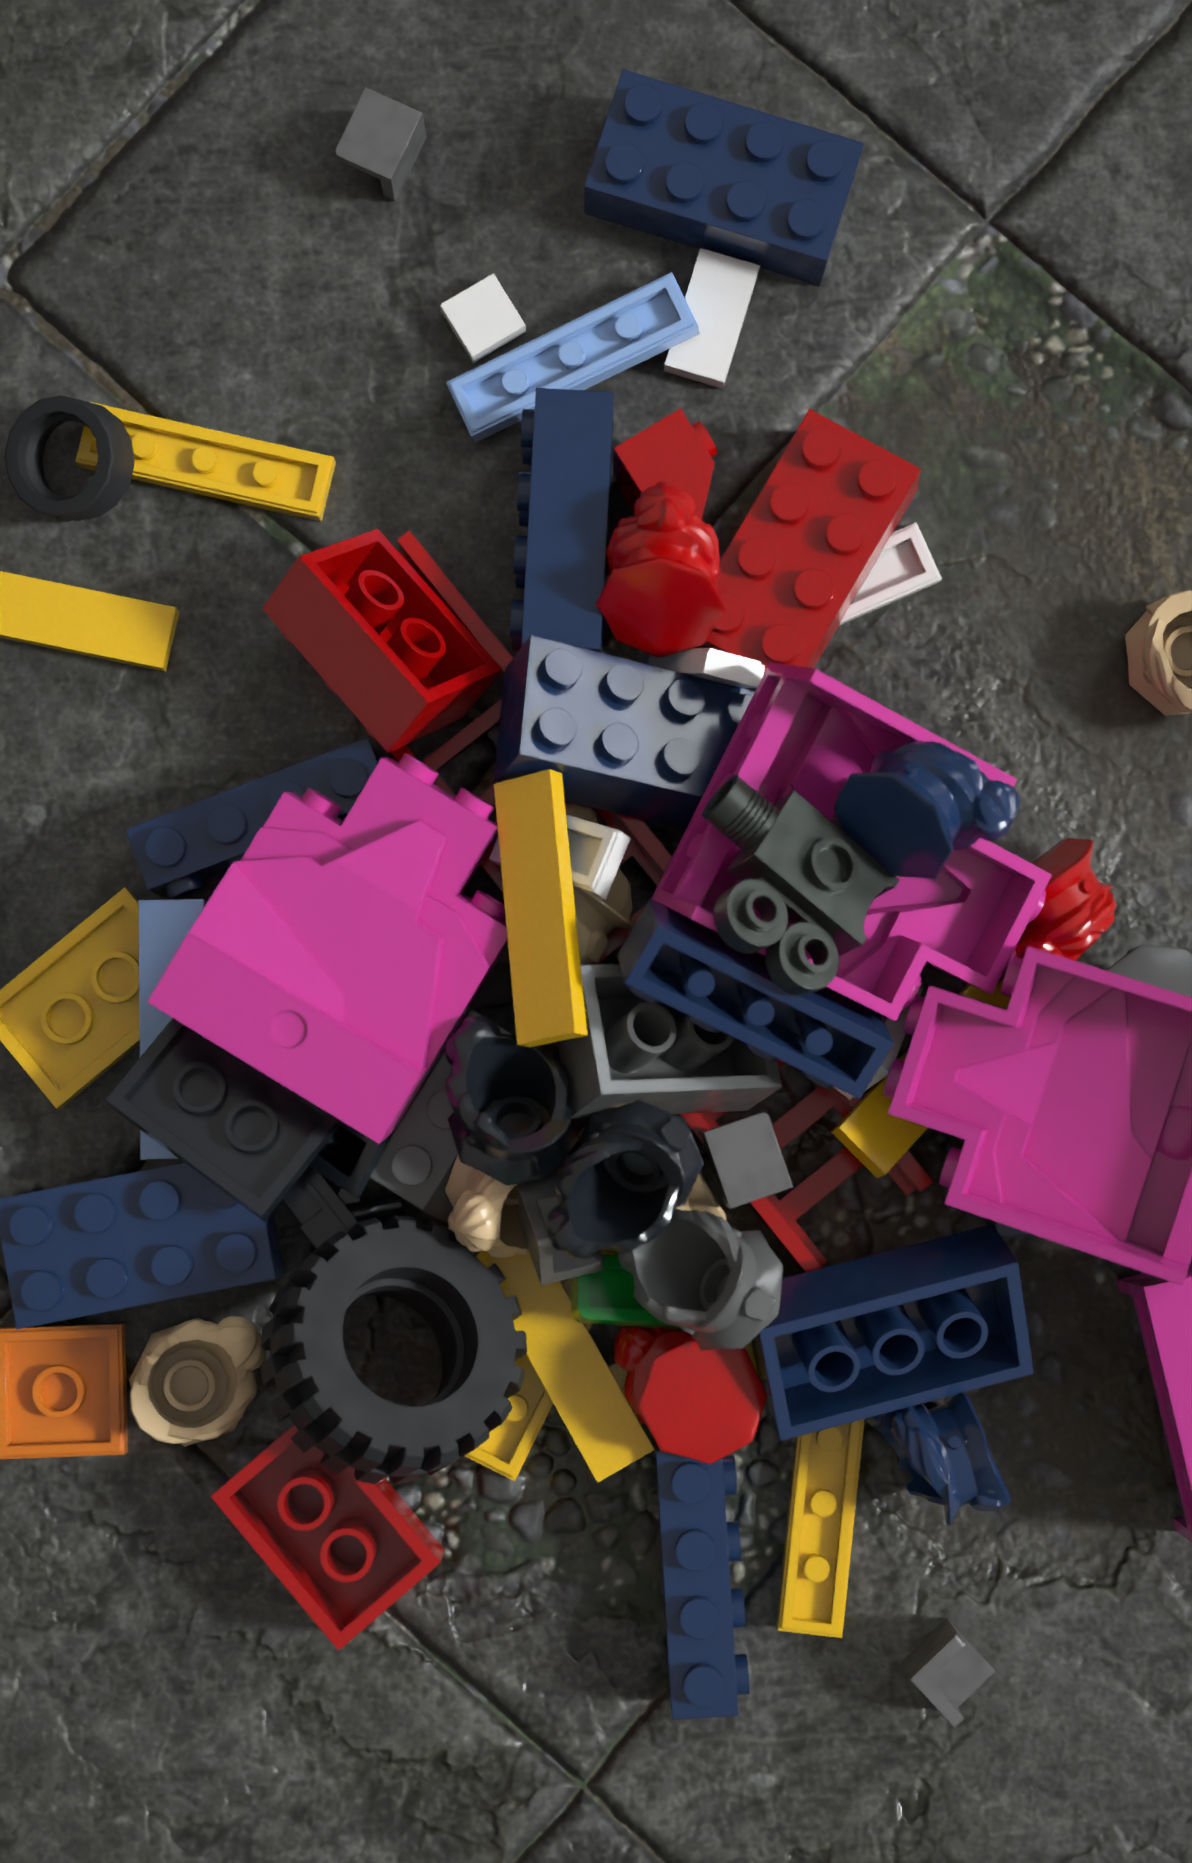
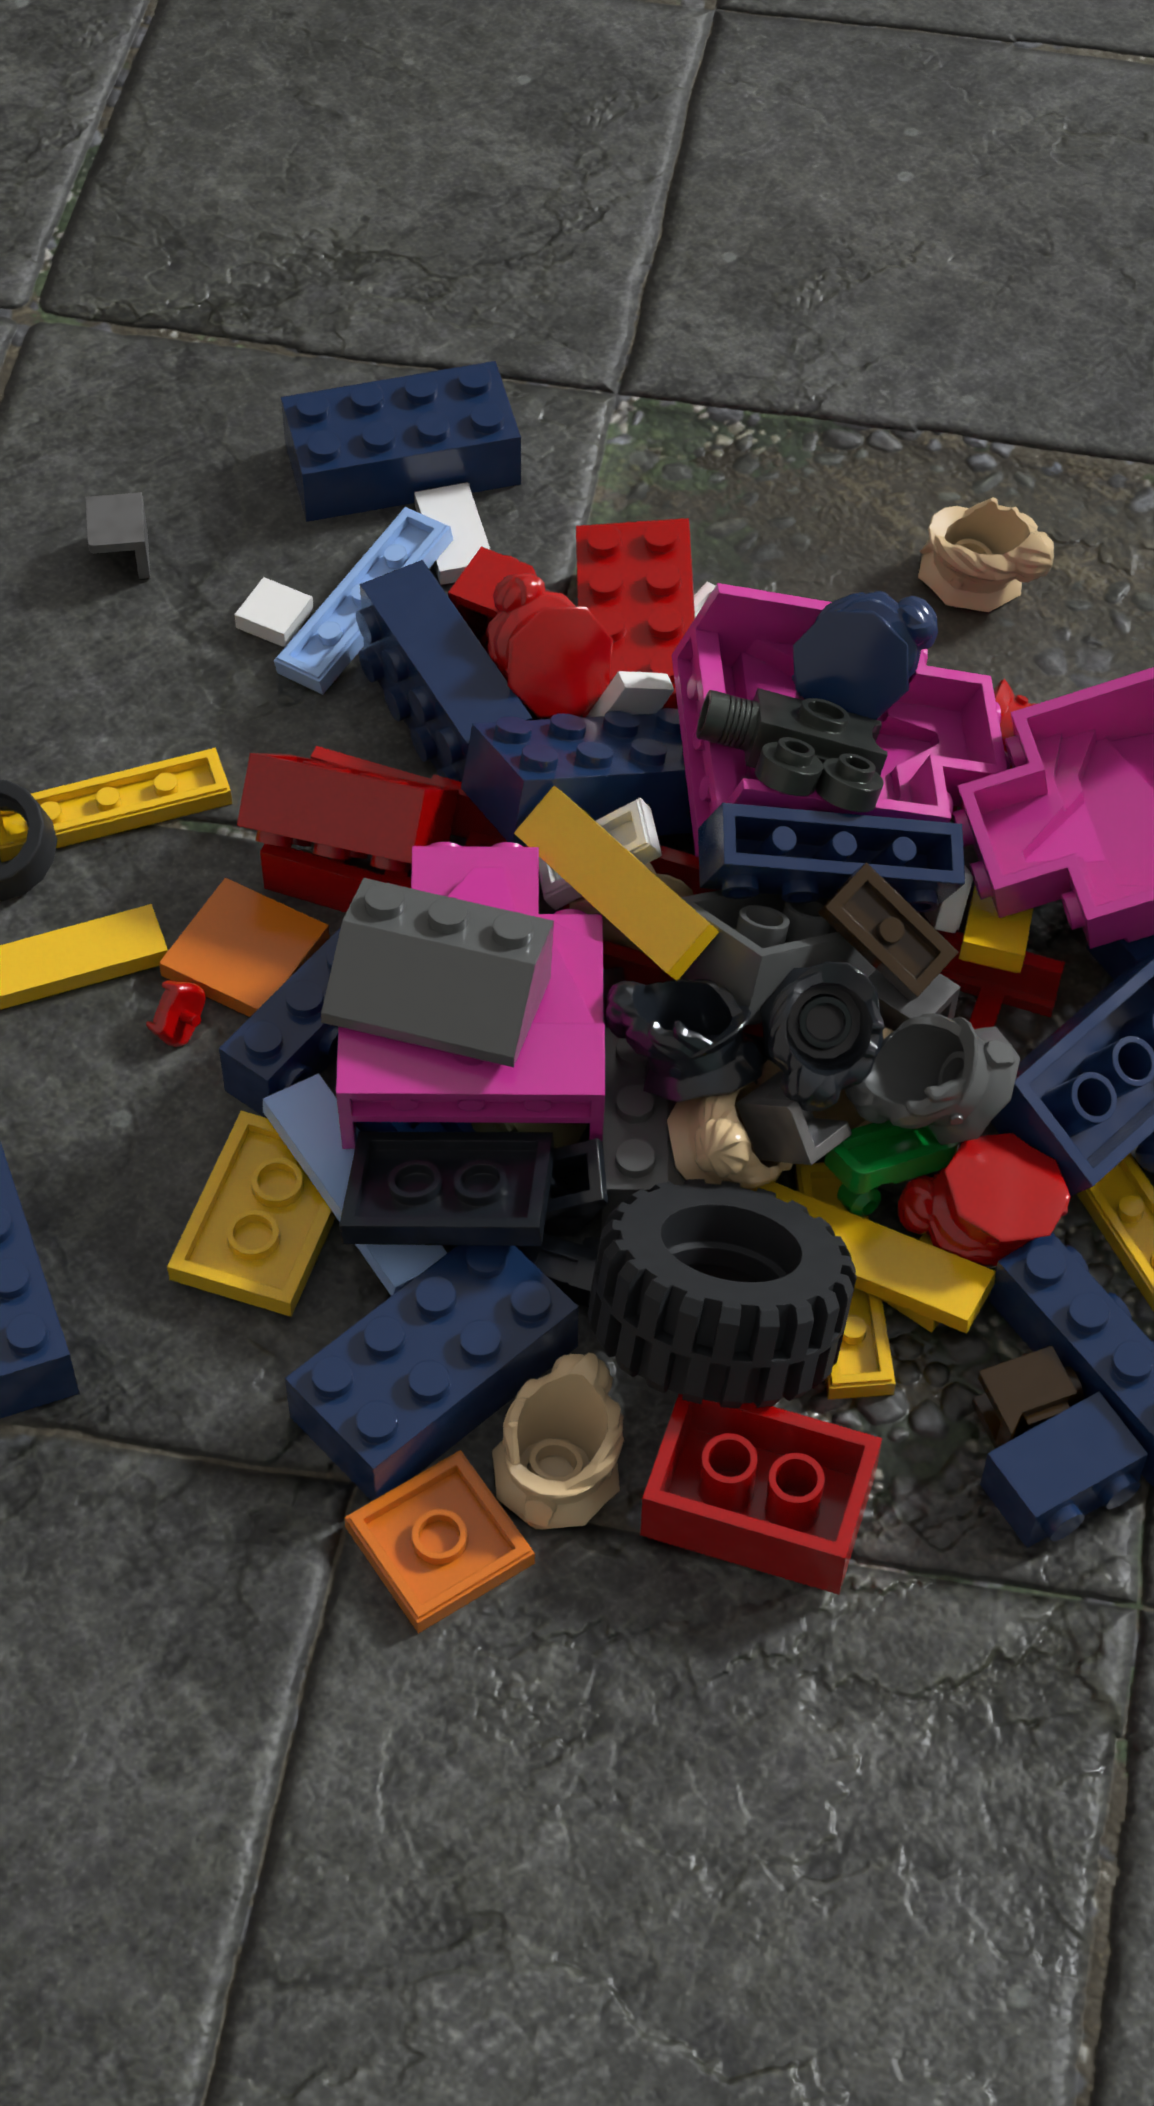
camera: 30 degrees left, 30 degrees down
(133, 740) = (178, 1012): none -> red piece
(233, 703) = (242, 947): none -> orange tile
(290, 951) = (438, 972): none -> dark grey slope
(594, 1652) = (1064, 1471): none -> dark blue brick
(609, 1570) = (1025, 1394): none -> dark brown window
(747, 1115) = (888, 932): none -> dark brown plate

